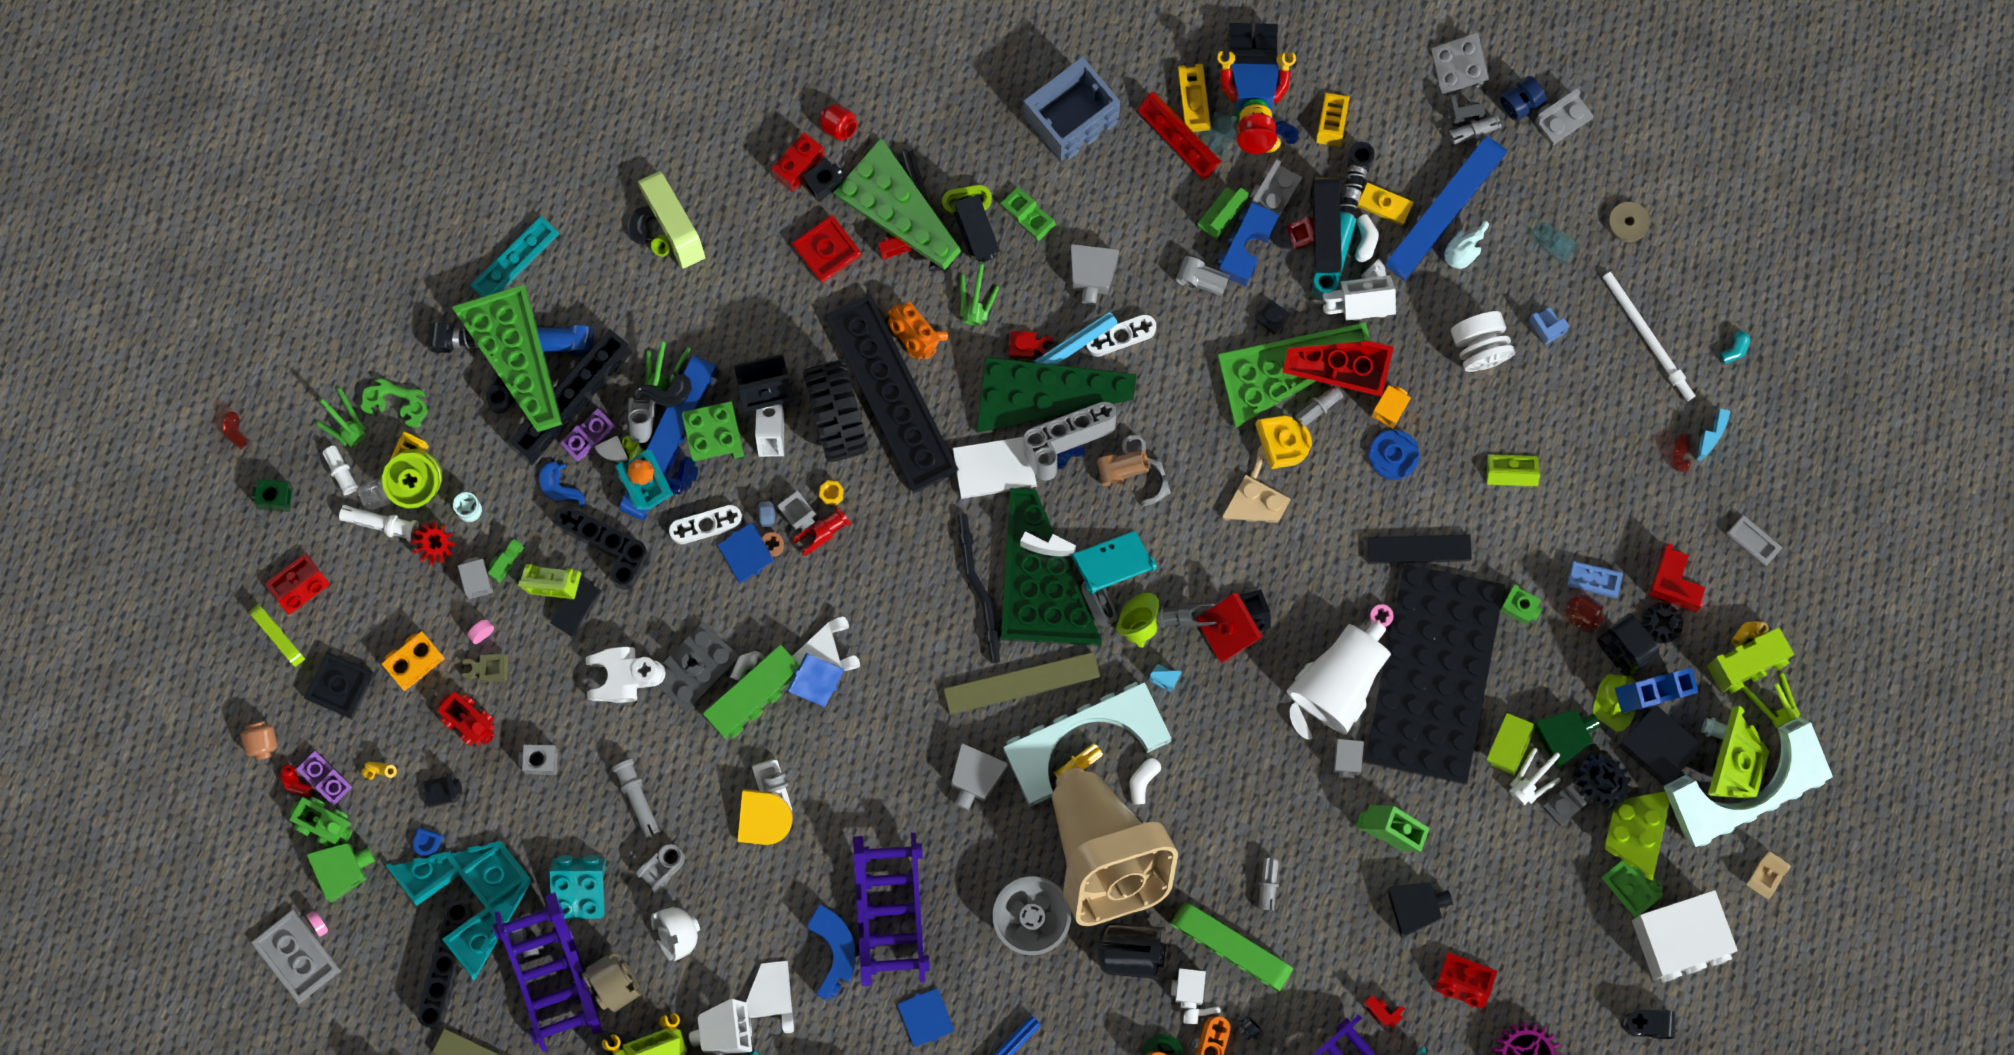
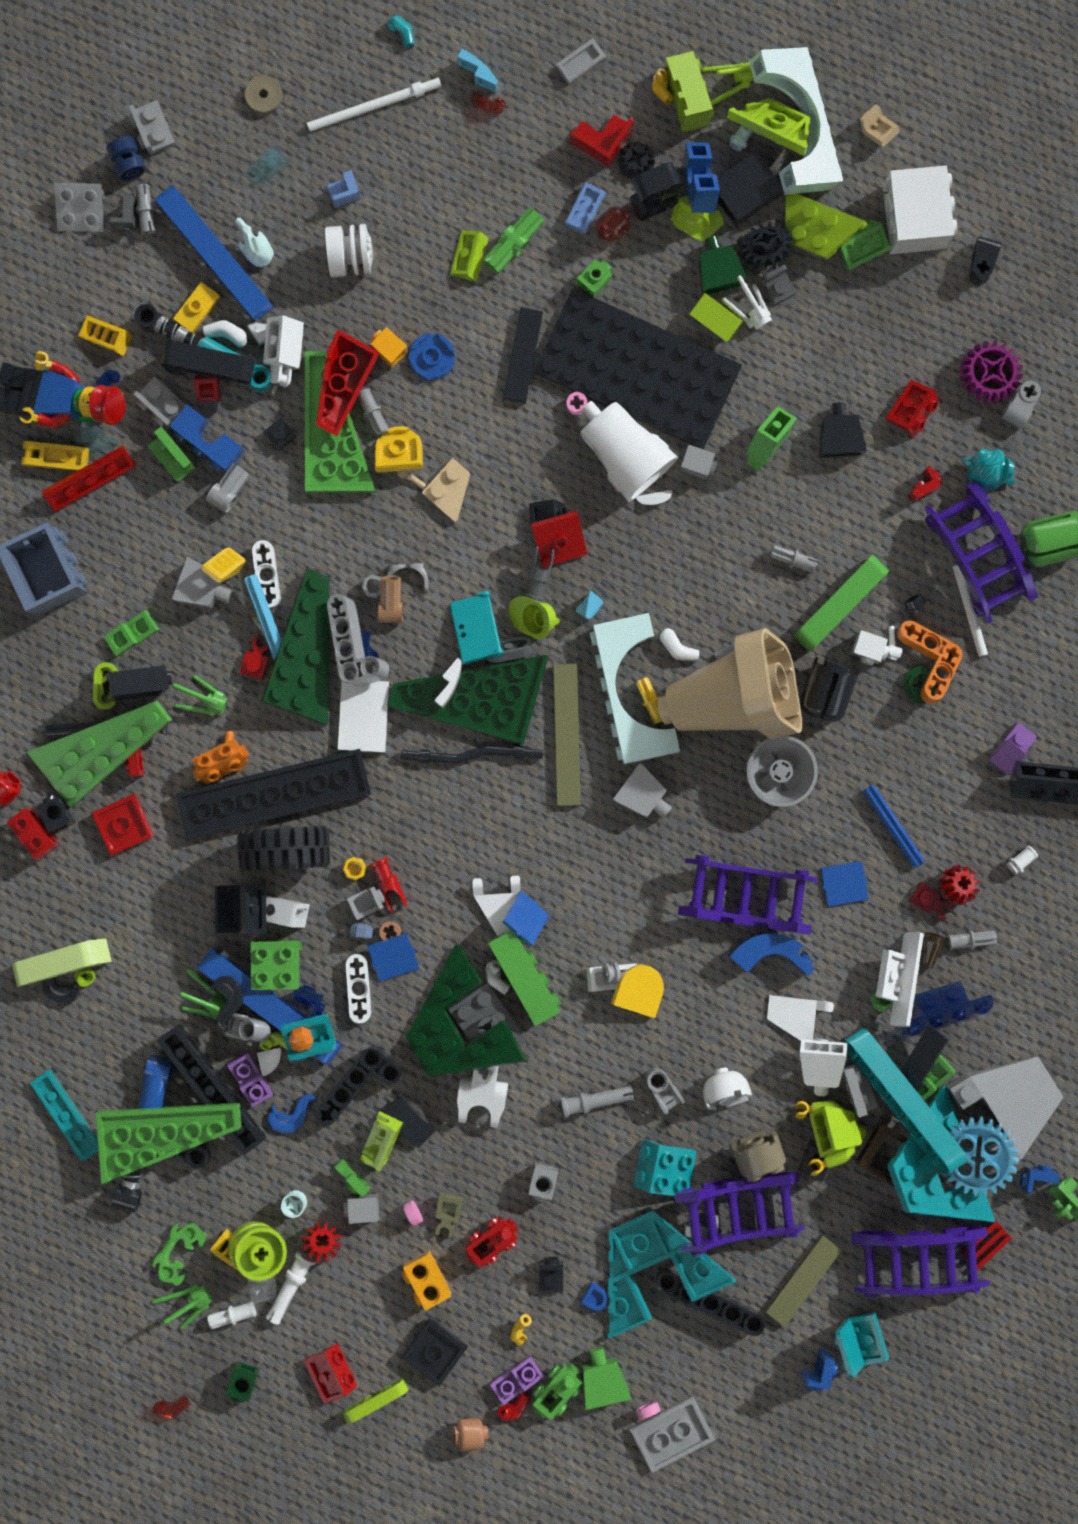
camera: 80 degrees left, 10 degrees up
(670, 614) = (438, 1040): none -> dark green wing
(1122, 291) = (223, 565): none -> yellow slope
(1539, 511) = (513, 240): none -> bright green piece

